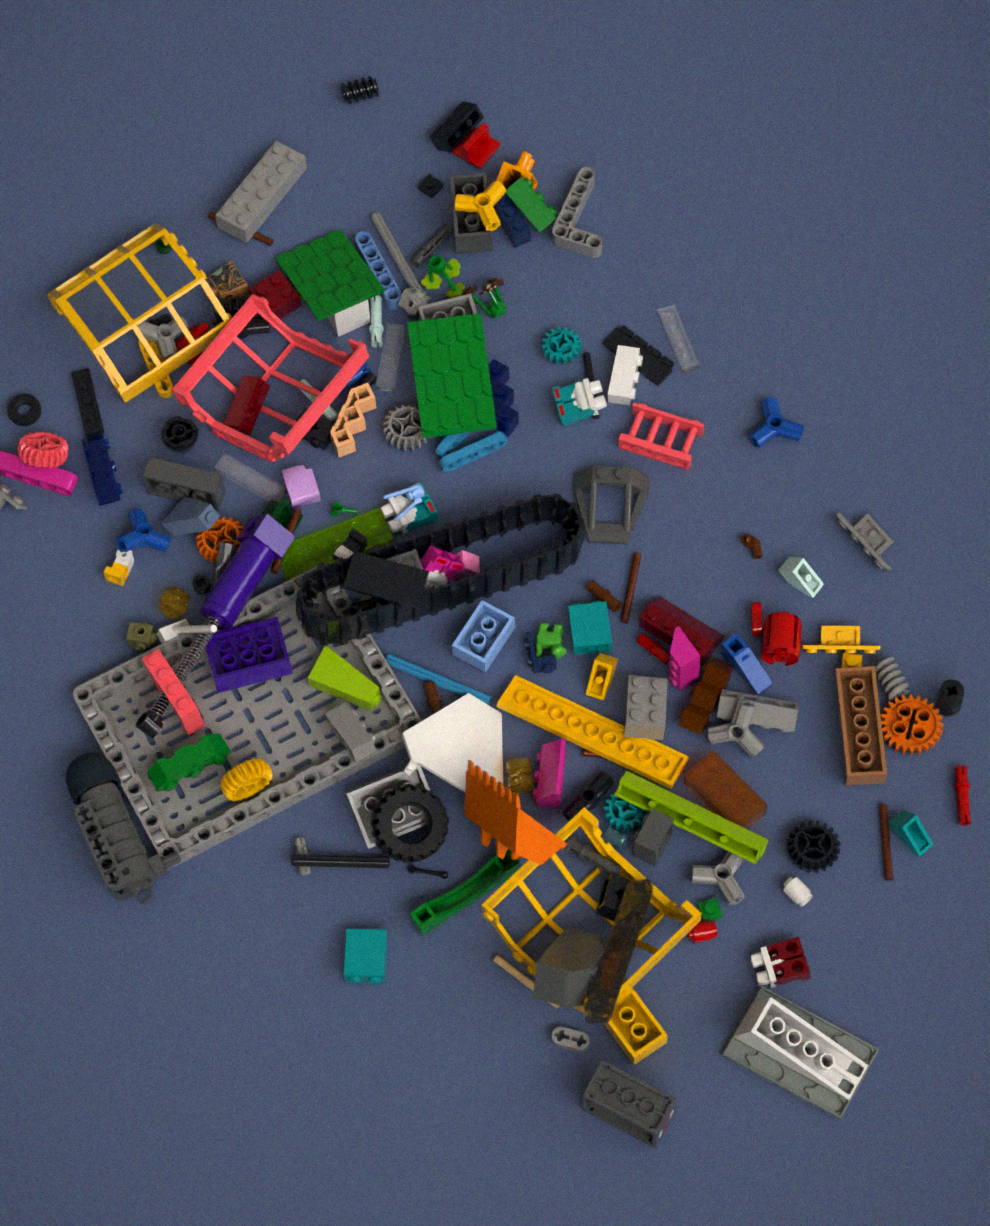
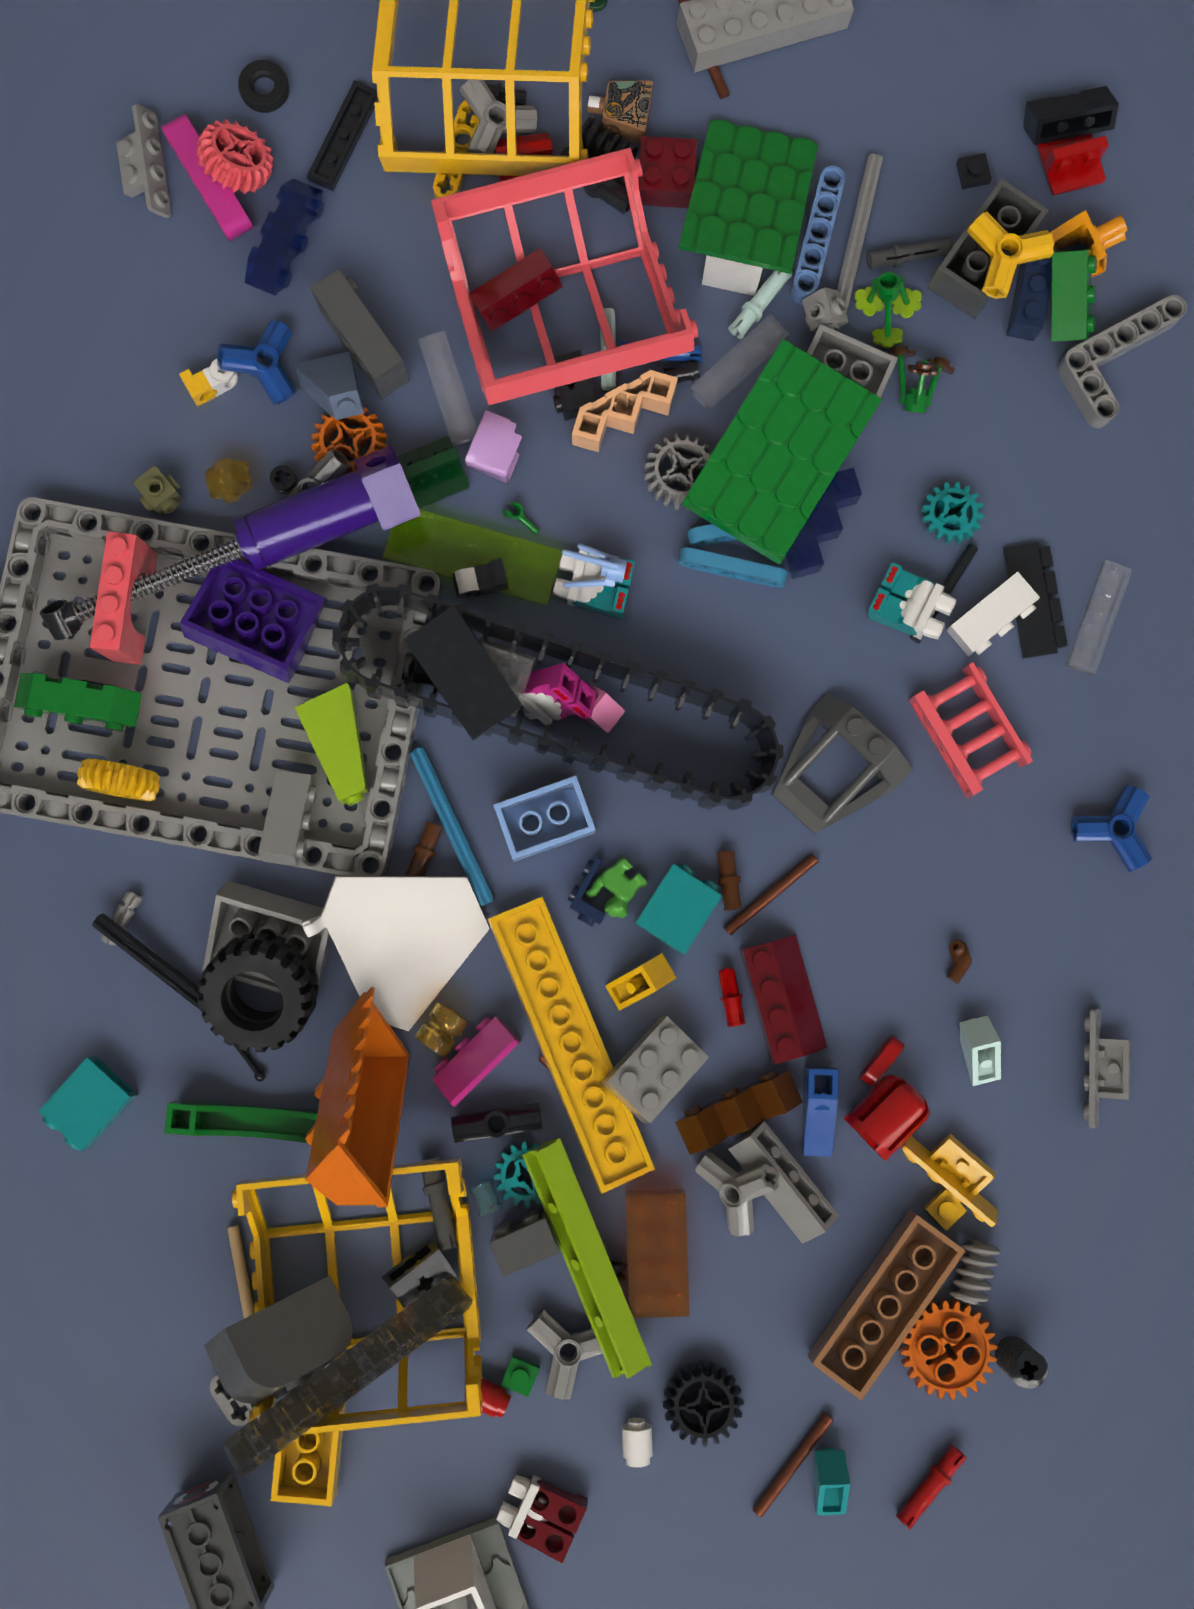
camera: 30 degrees right, 20 degrees up
(175, 629) = (205, 519): white piece -> none
(179, 434) = (407, 265): black cone -> none
(291, 526) = (428, 499): copper bar -> none
(683, 661) = (743, 1052): dark pink slope -> none

